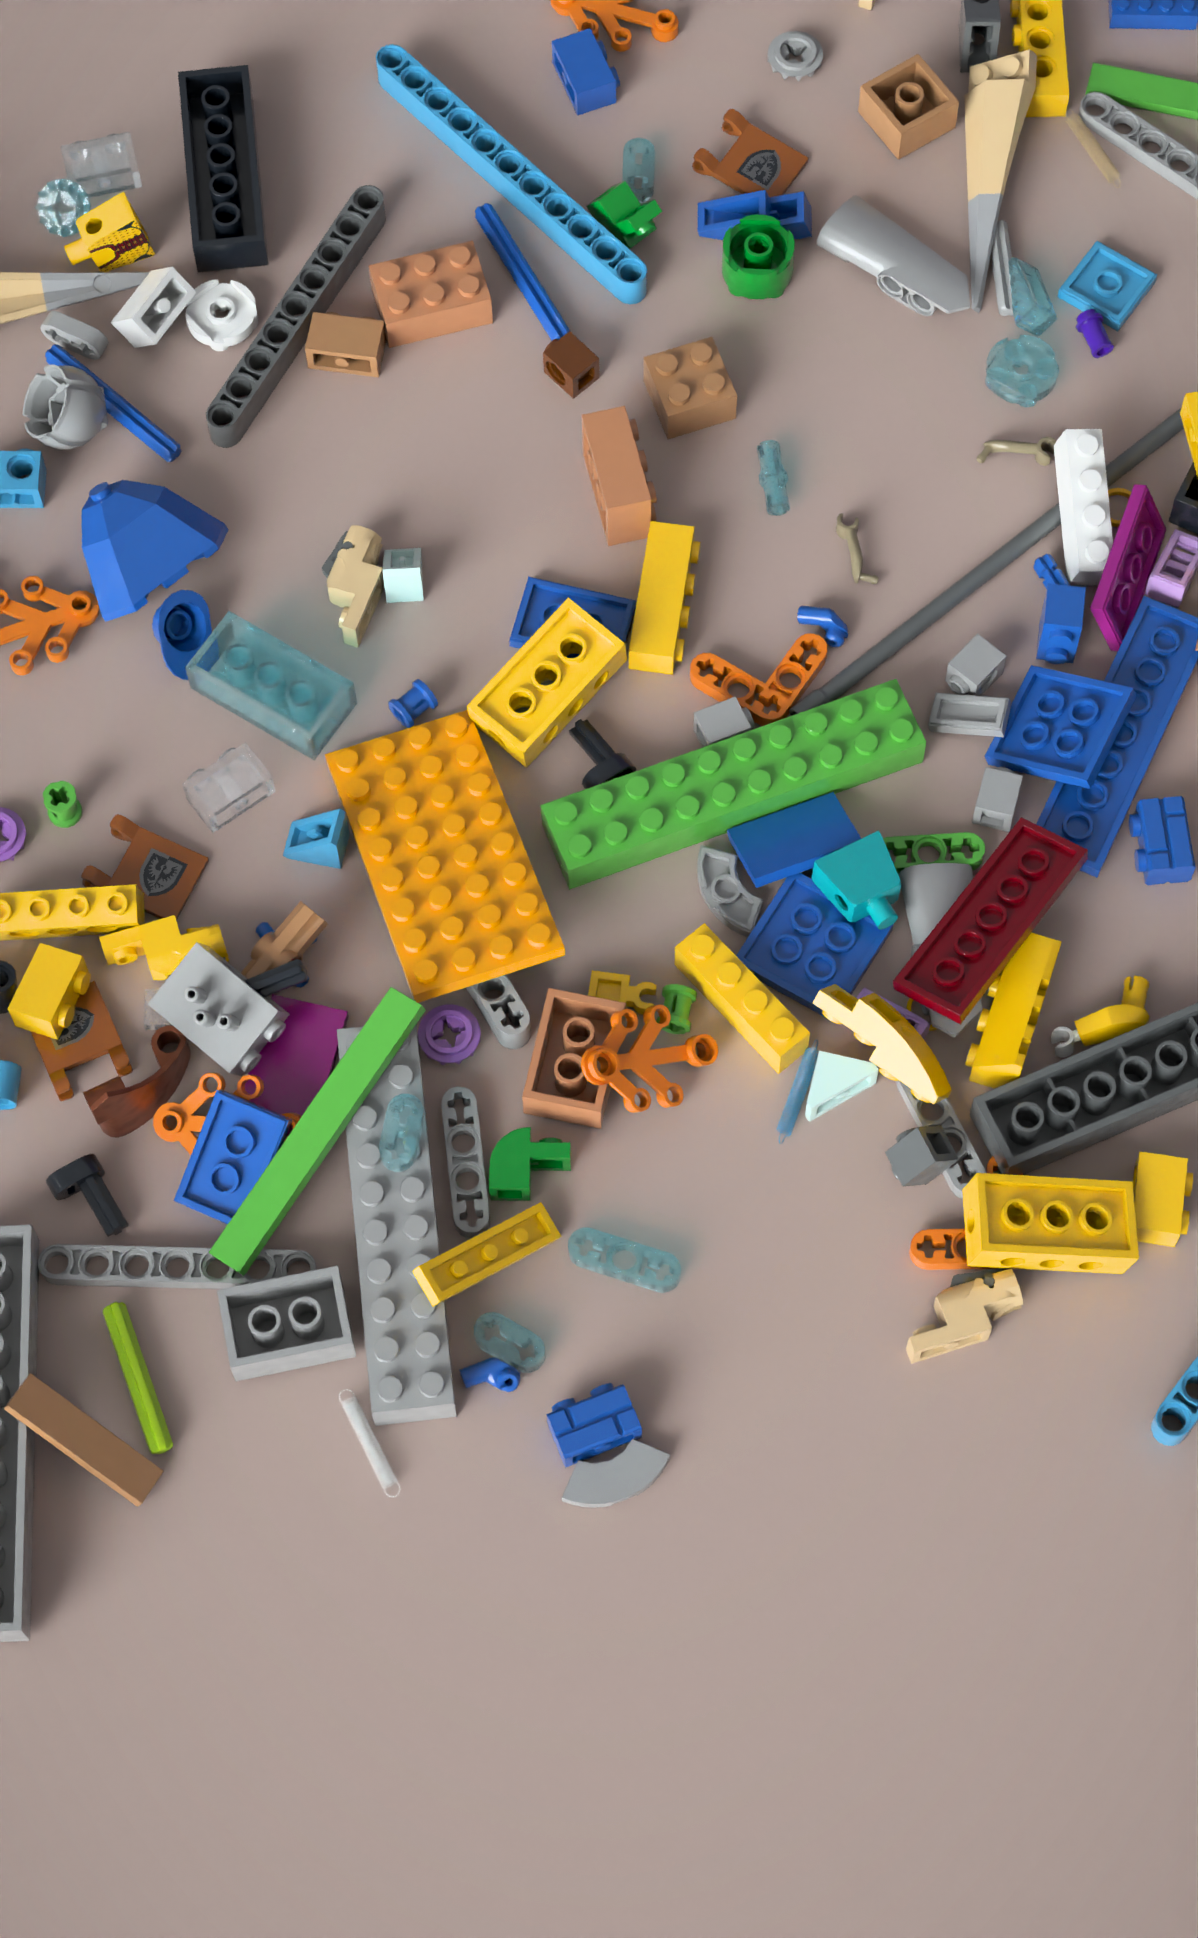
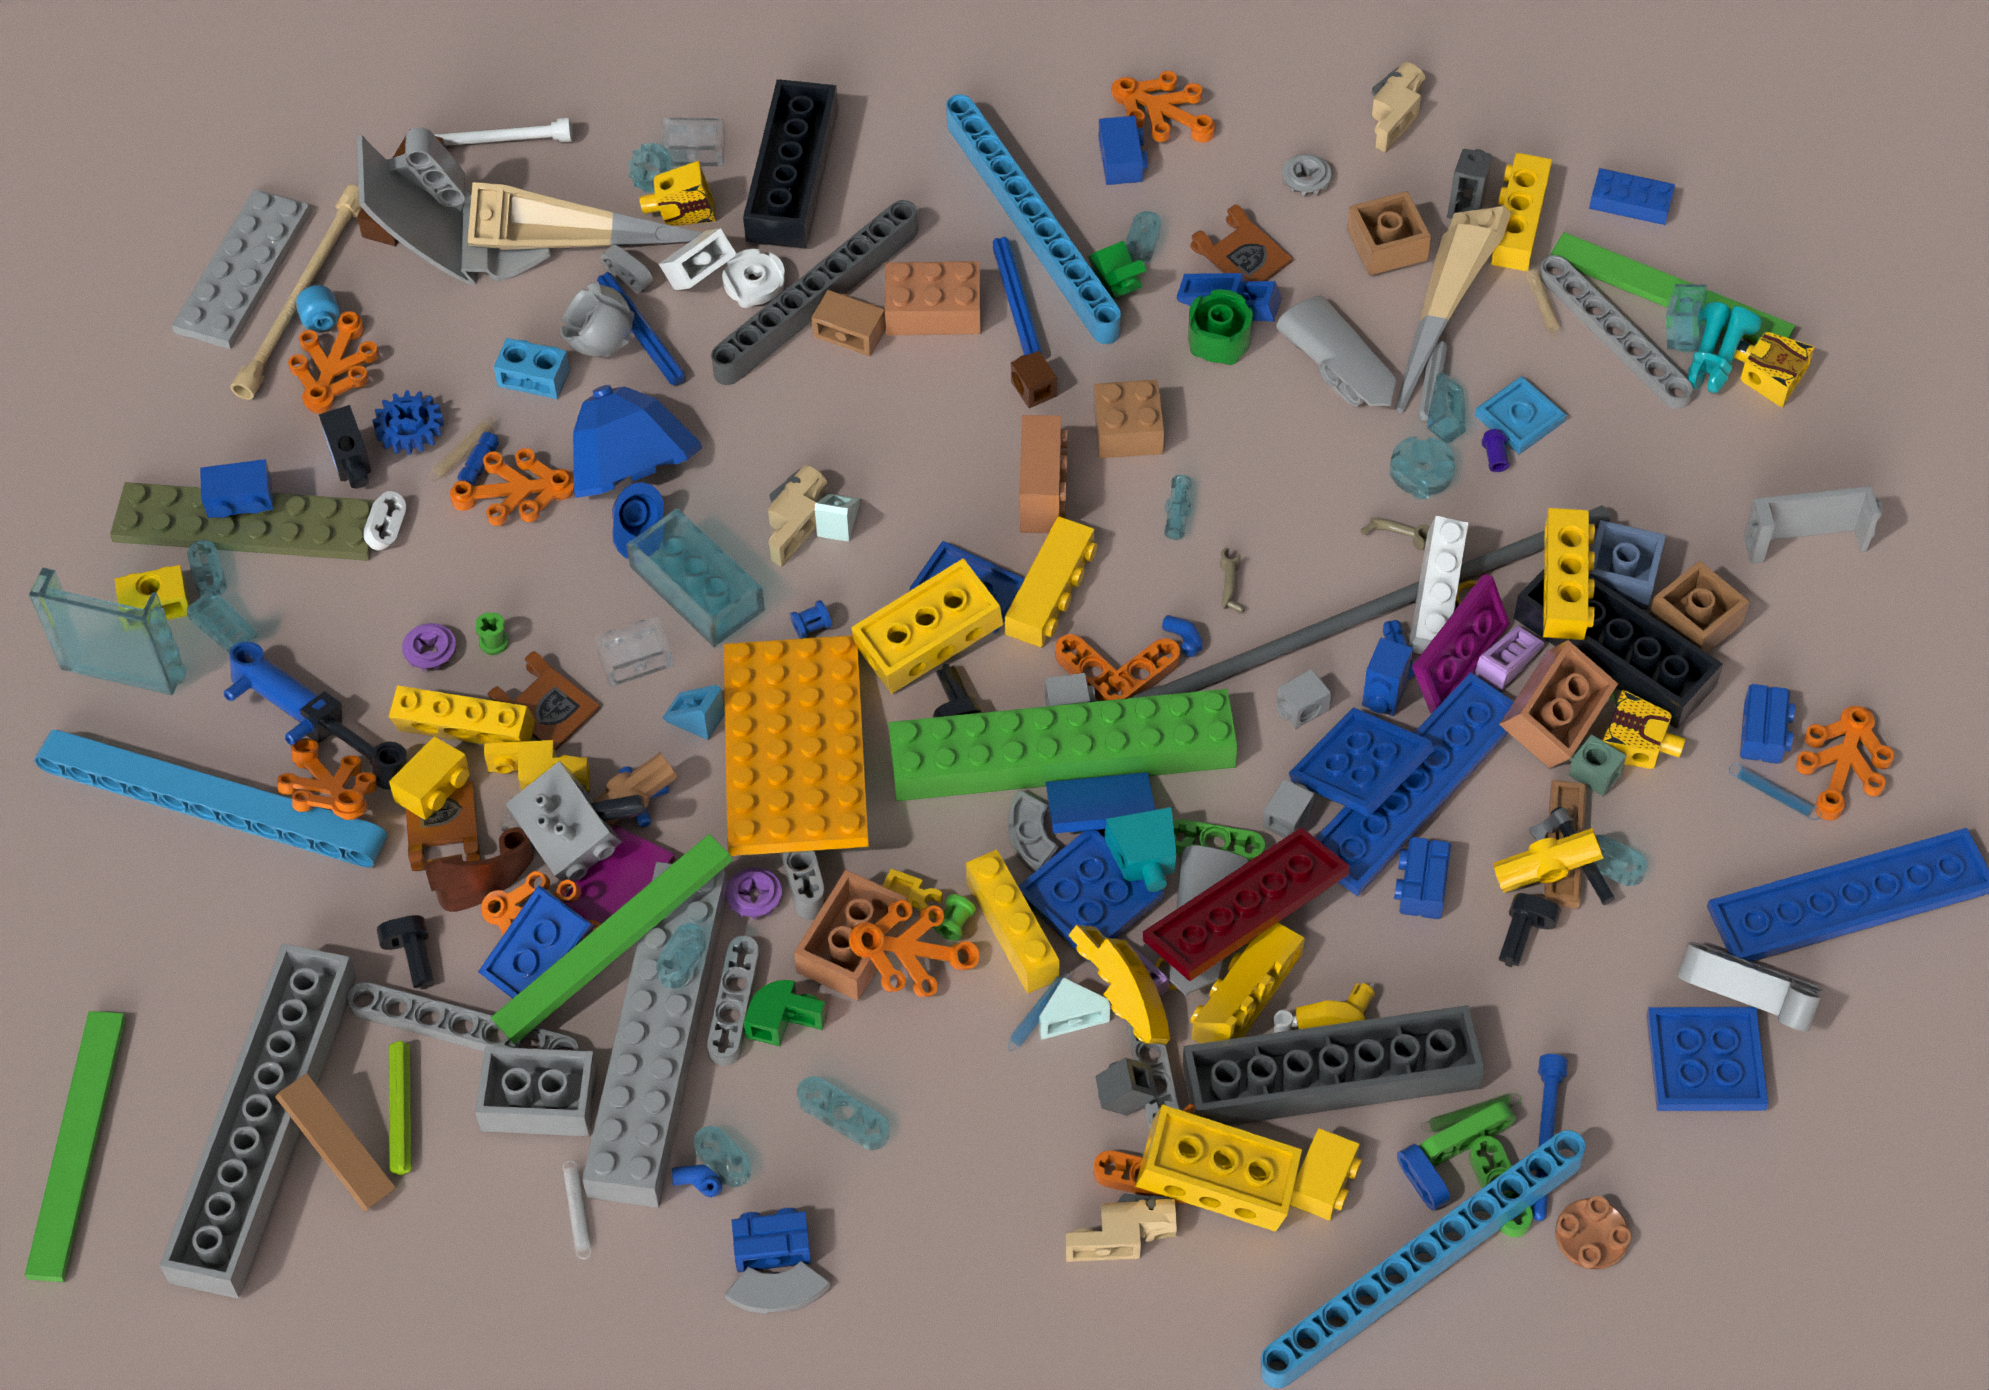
camera: 15 degrees right, 10 degrees down
(486, 1254) = (723, 1074): yellow plate -> none
(969, 714) = (1286, 736): light grey tile -> none

